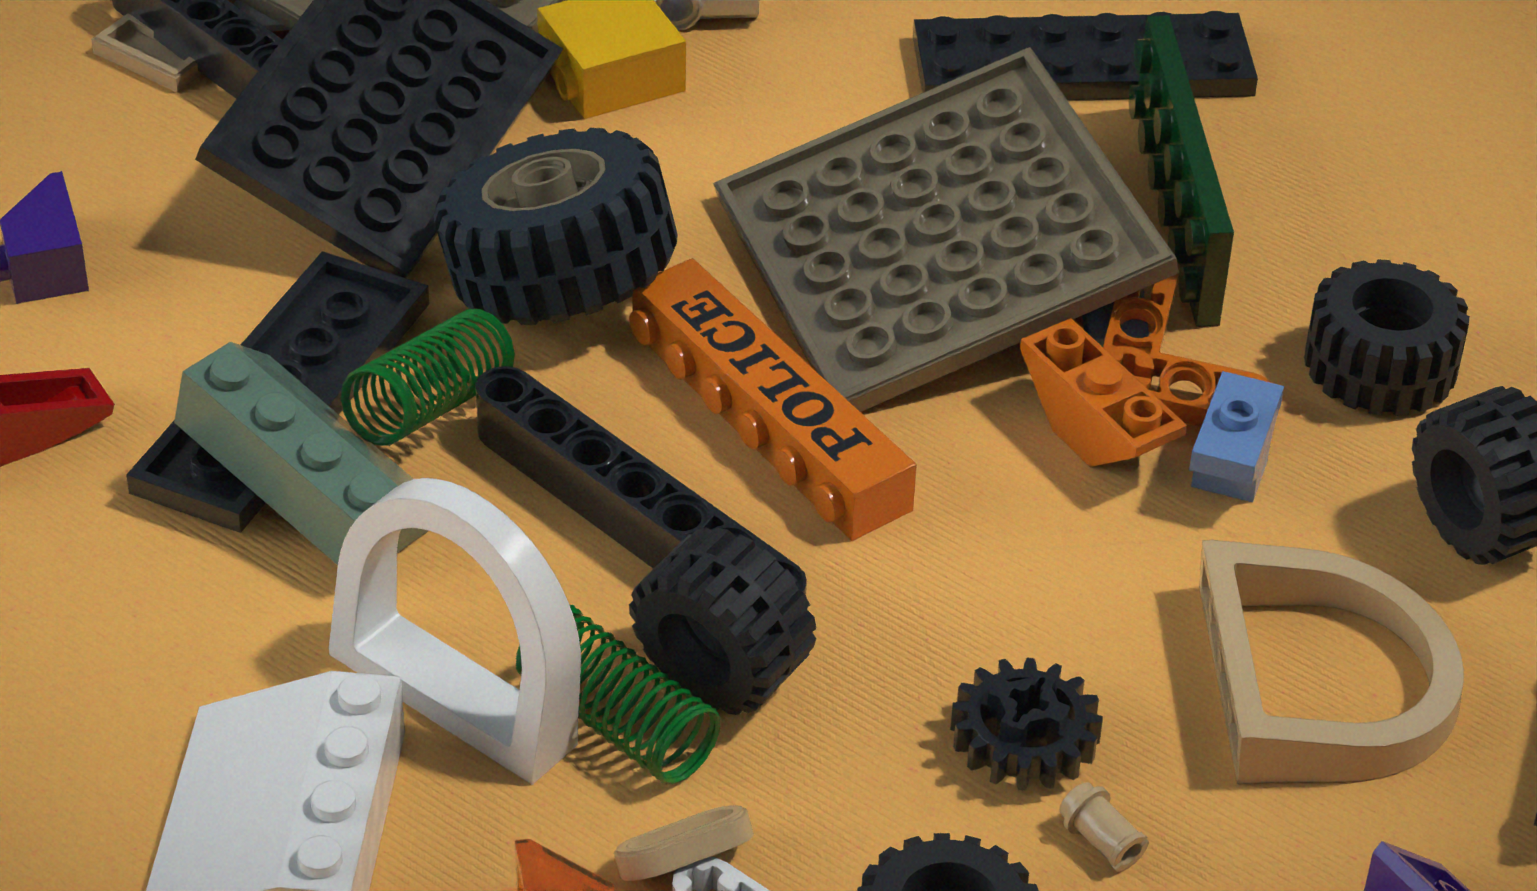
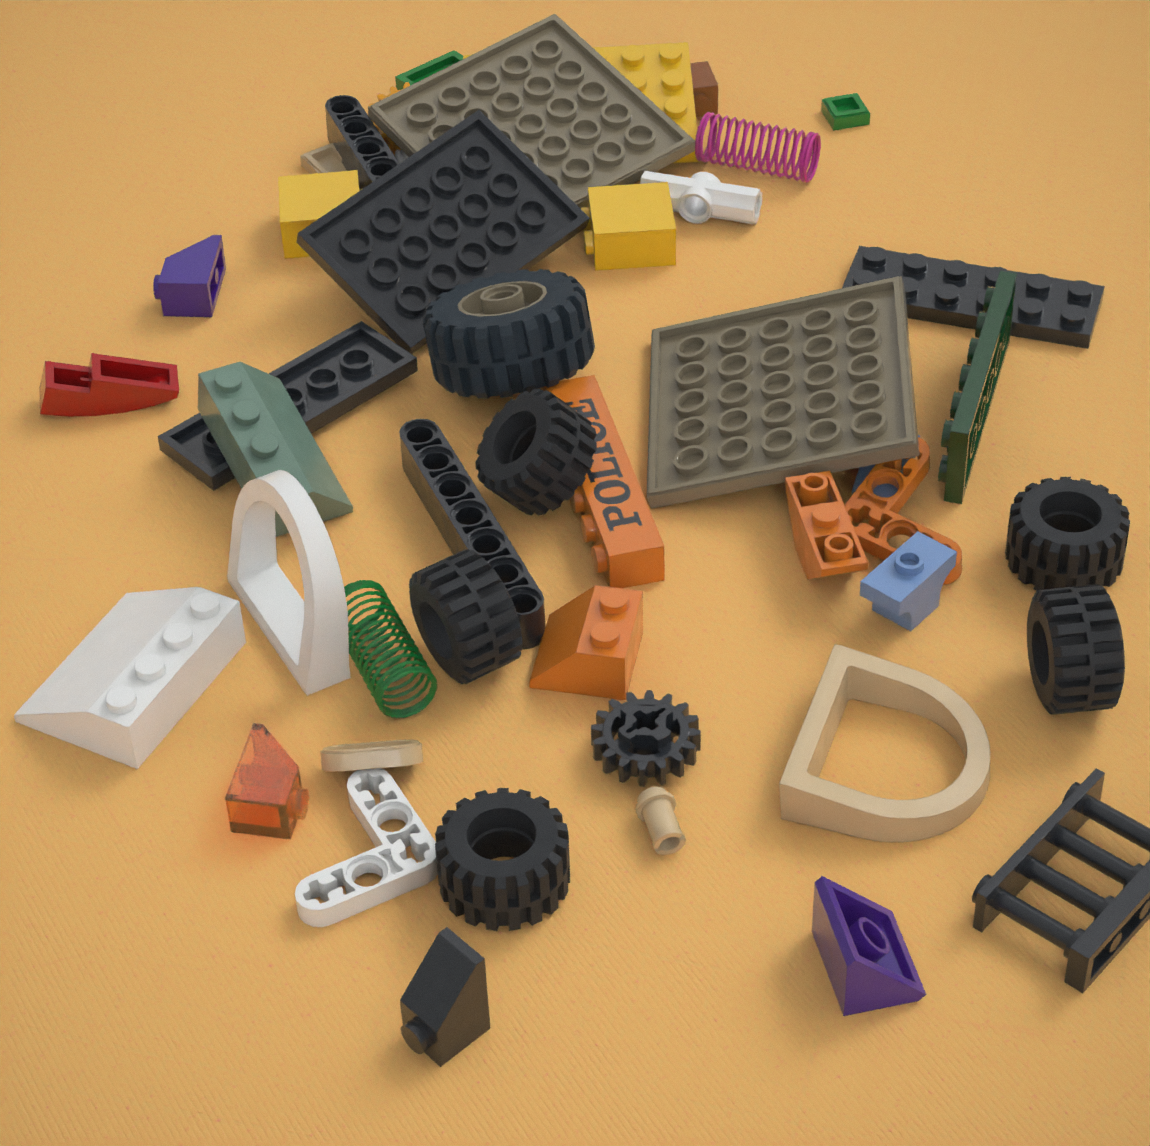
camera: 25 degrees right, 0 degrees up
(166, 110) = (307, 199): none -> yellow piece
(402, 392) = (338, 418): green piece -> none
(652, 356) = (536, 452): none -> black tyre
(884, 617) = (591, 644): none -> orange slope

